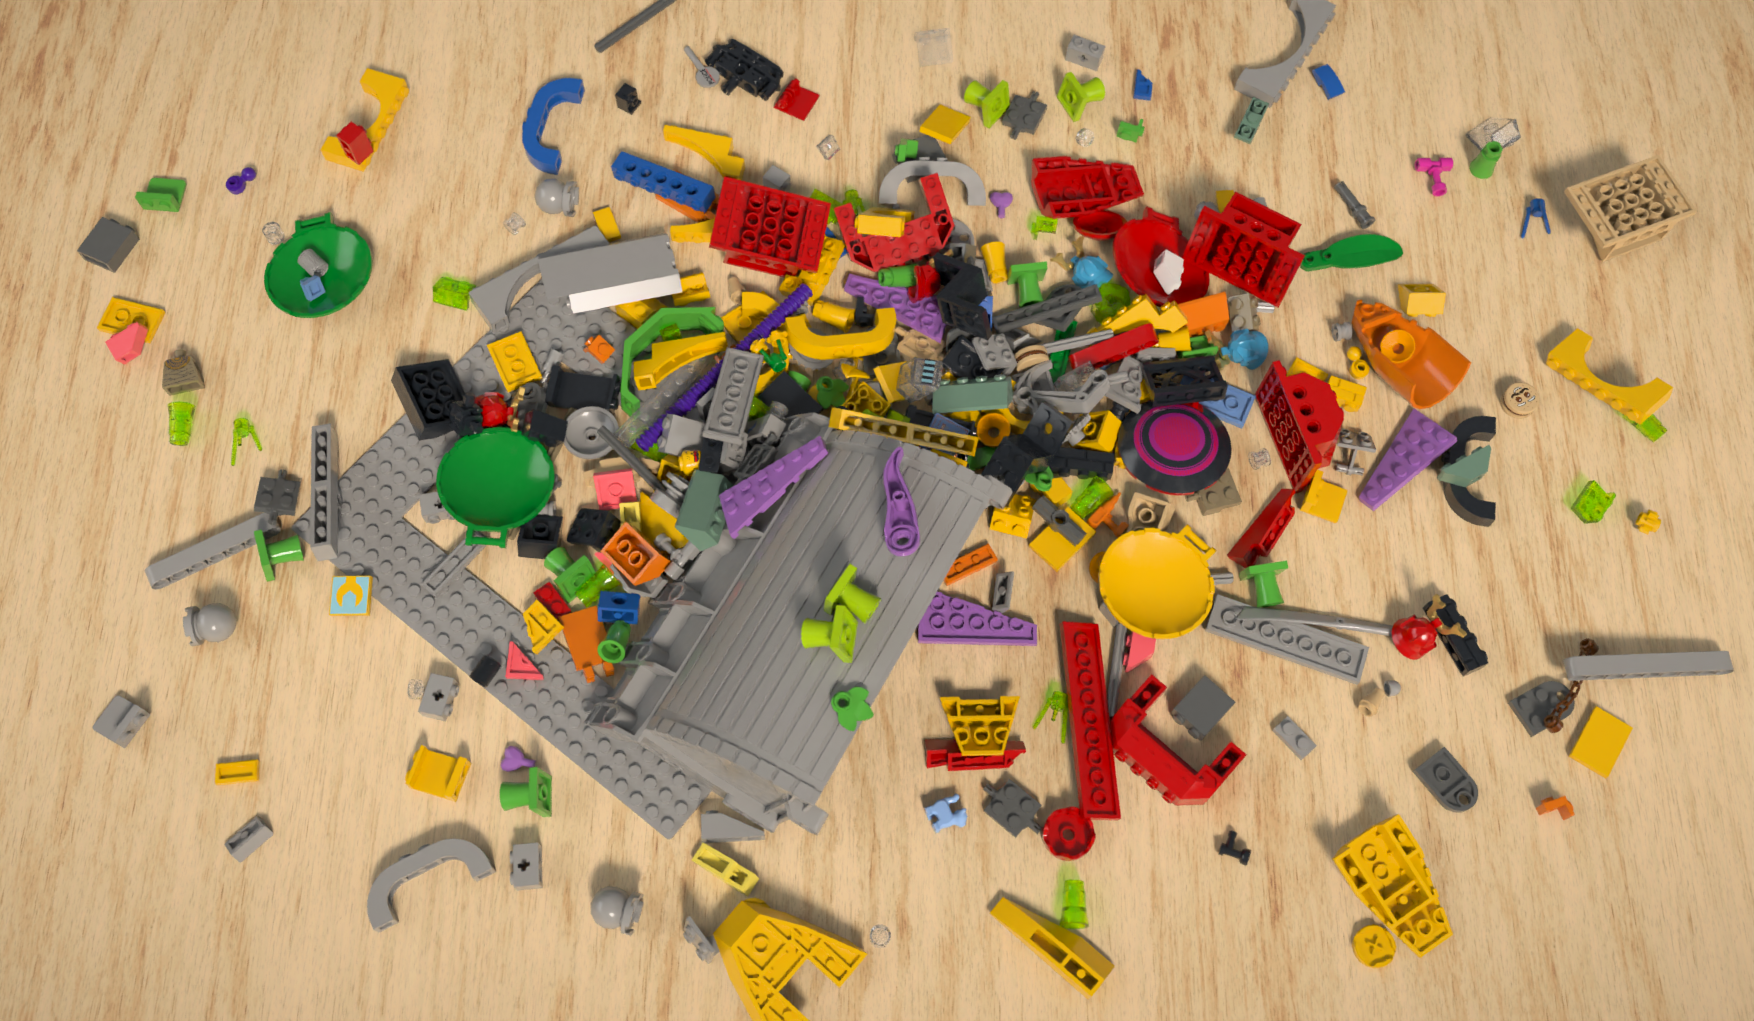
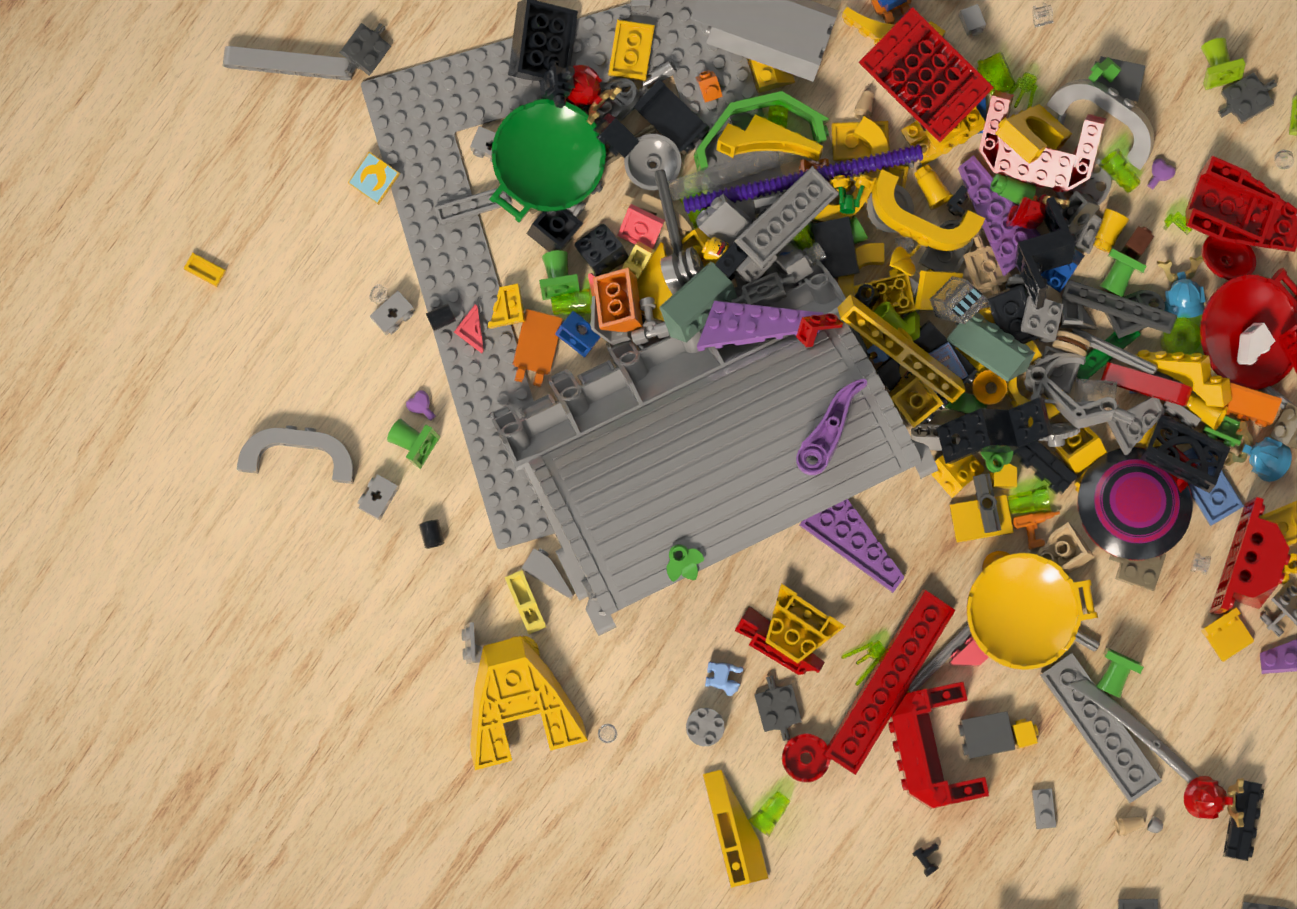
camera: 40 degrees right, 15 degrees up
(121, 721) = (139, 167): light grey bracket -> none
(210, 623) = (252, 131): light grey tile -> none
(248, 839) = (184, 330): light grey slope -> none
(277, 552) = (338, 102): bright green plant -> none
(324, 493) = (404, 75): light grey hinge -> none
(437, 774) = (354, 375): yellow panel -> none
(552, 600) = (530, 290): red plate -> none
(598, 866) = (431, 534): none -> black piece
(614, 644) = (556, 363): bright green plant -> none
(615, 908) = (423, 576): light grey tile -> none
(693, 288) = (826, 82): yellow bracket -> none
(818, 450) = (811, 324): none -> red bracket
(833, 394) = (875, 264): bright green plate -> none
(838, 634) = (710, 501): lime plant -> none
(854, 598) = (741, 479): lime plant -> none
(945, 124) = (1163, 63): yellow tile -> none
(962, 868) = (705, 727): none -> light grey brick
(970, 564) = (894, 488): orange tile -> none
(971, 215) = (1120, 170): none -> clear neon green plant
(1003, 591) = (896, 531): light grey slope -> none
(1025, 250) = (1138, 243): none -> copper brick
(1119, 410) = (1109, 441): black wheel -> none
(1232, 684) = (1024, 733): none -> yellow brick
(1264, 531) = (1156, 627): red wedge -> none

